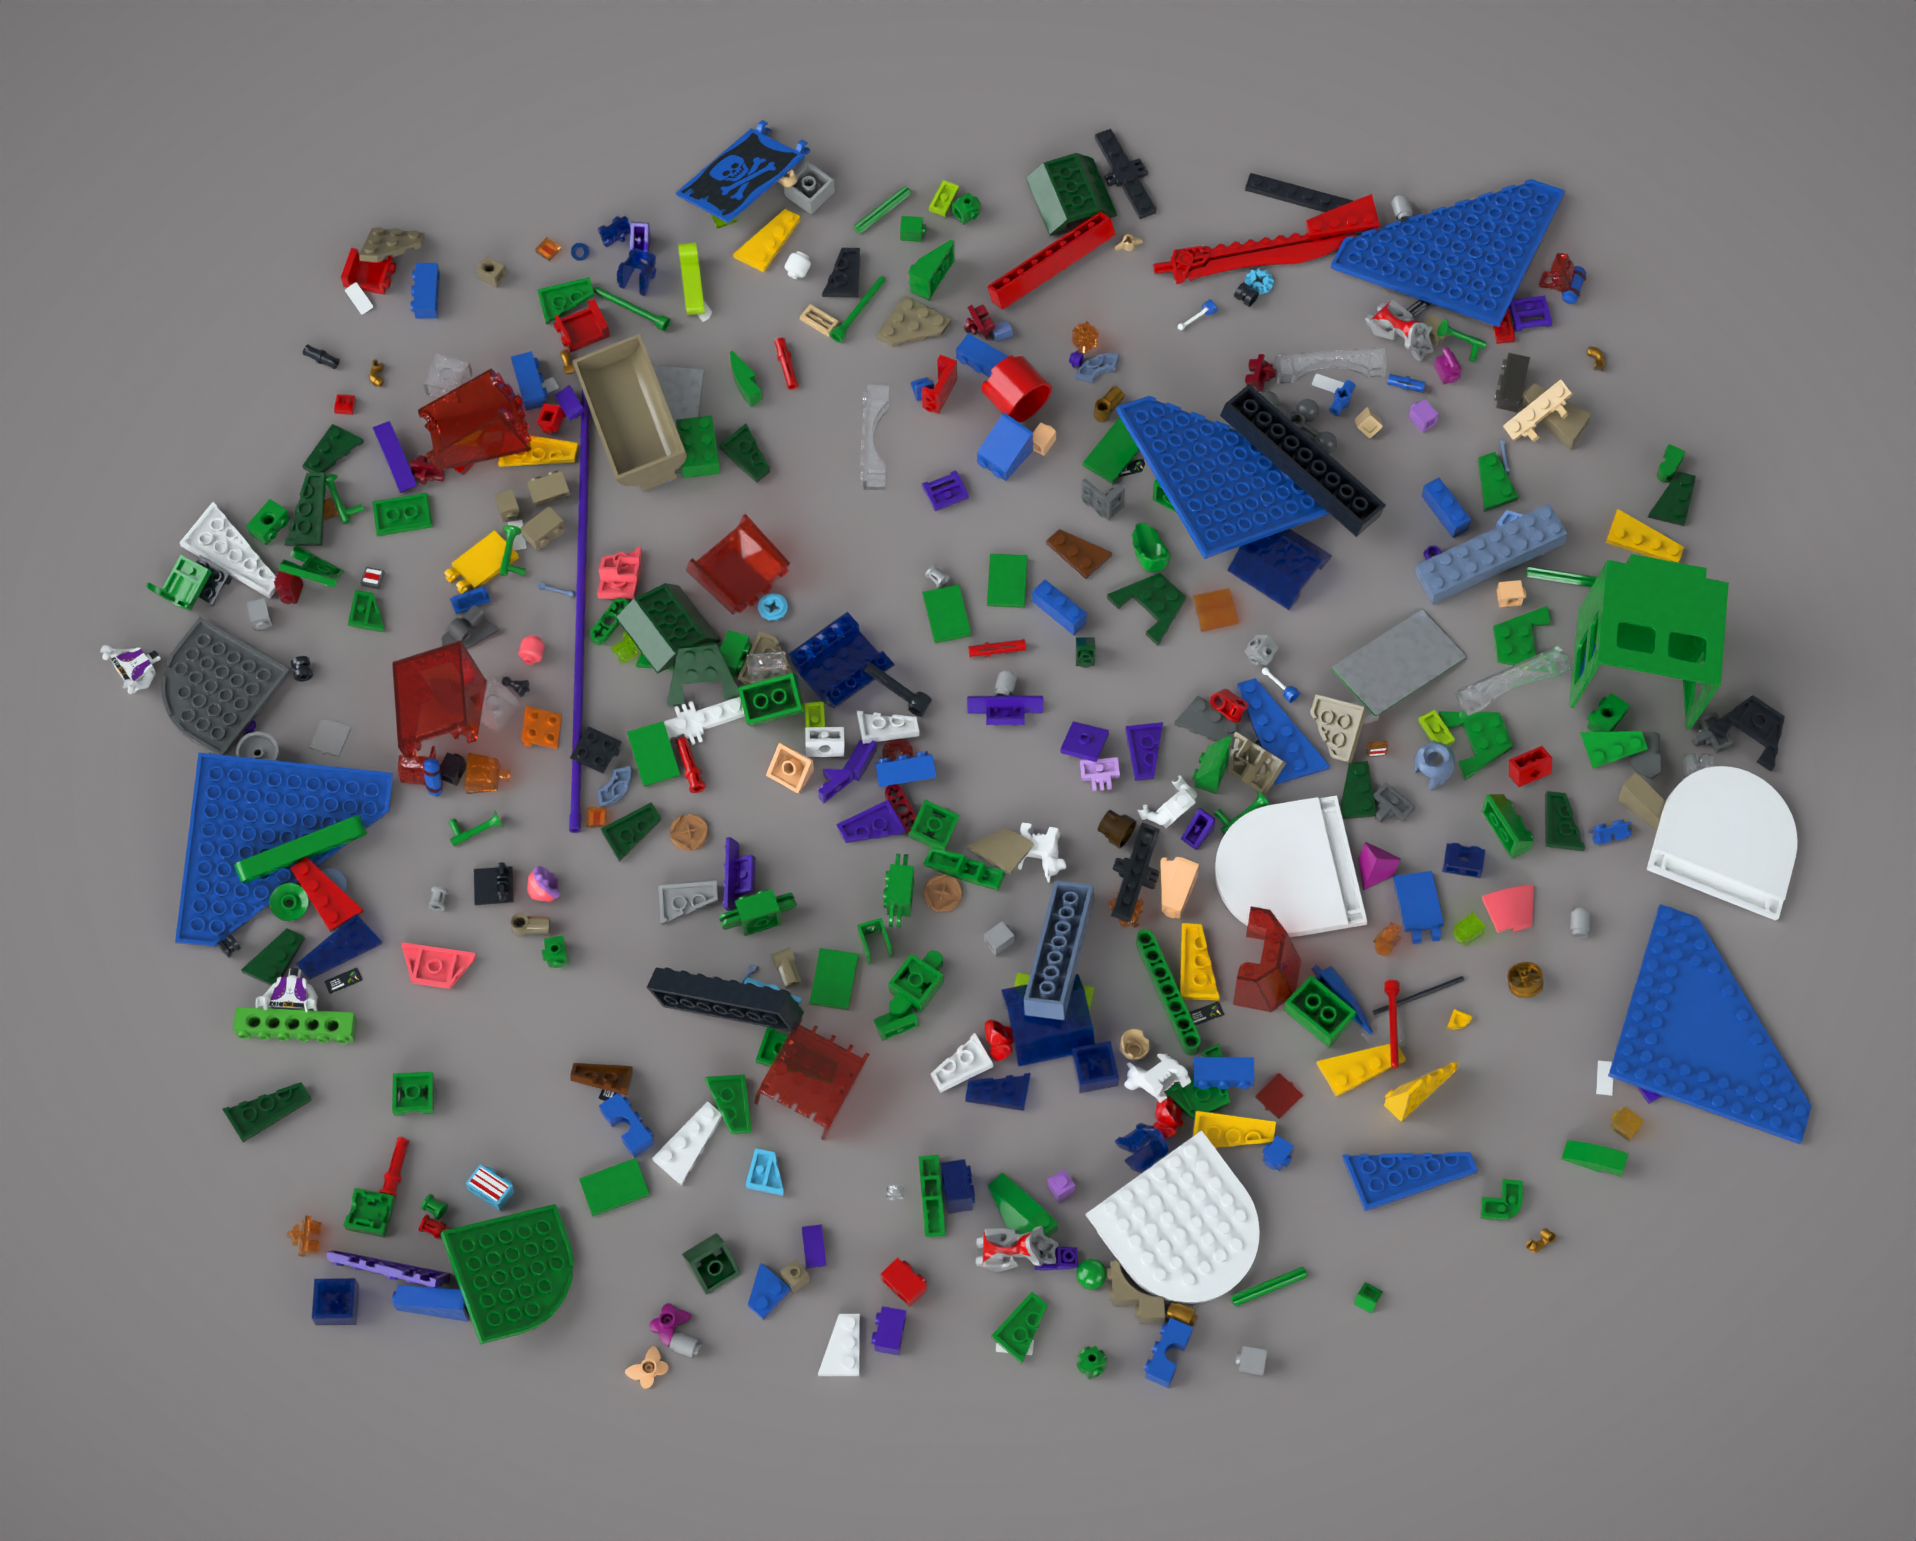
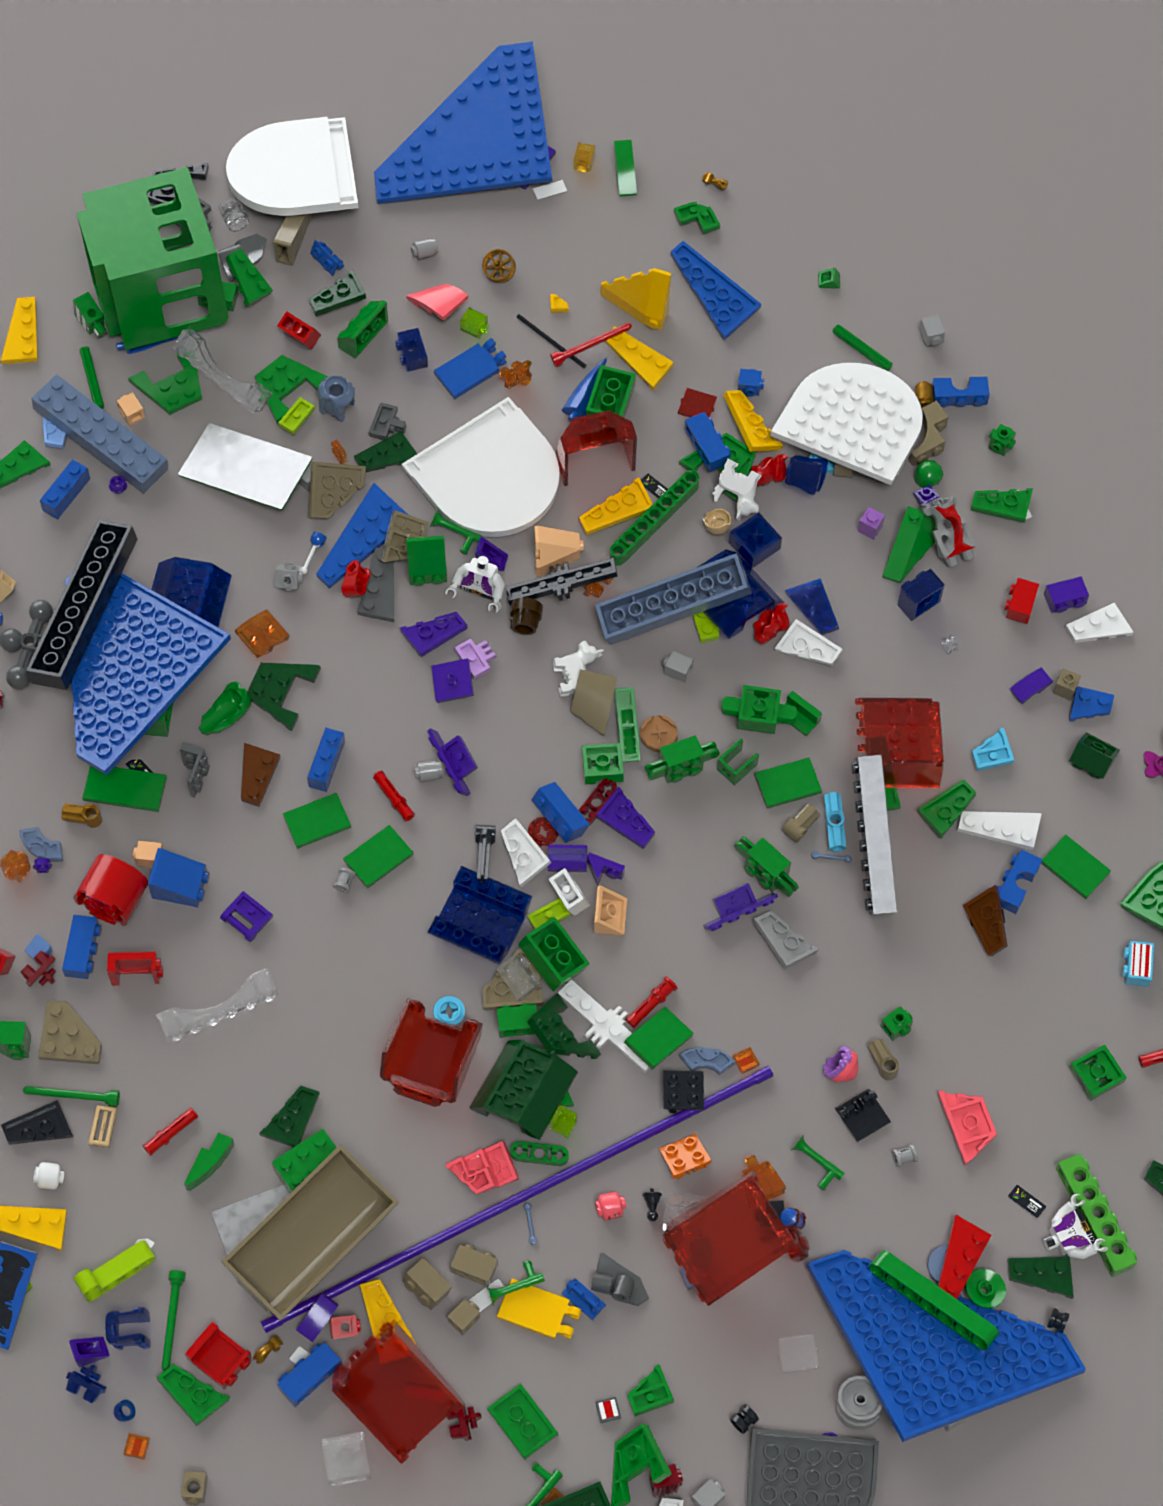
camera: 120 degrees left, 0 degrees up
(341, 946) = (1000, 1218): clear blue wing -> none
(394, 456) = (463, 1462): dark purple slope -> none
(630, 830) = (743, 1022): dark green wing -> none
(689, 832) = (716, 972): medium nougat tile -> none
(917, 386) = (145, 985): blue bracket -> none
(931, 1196) = (935, 617): green slope -> none
(1085, 651) = (361, 716): dark green slope -> none
(1376, 865) = (450, 413): magenta slope -> none

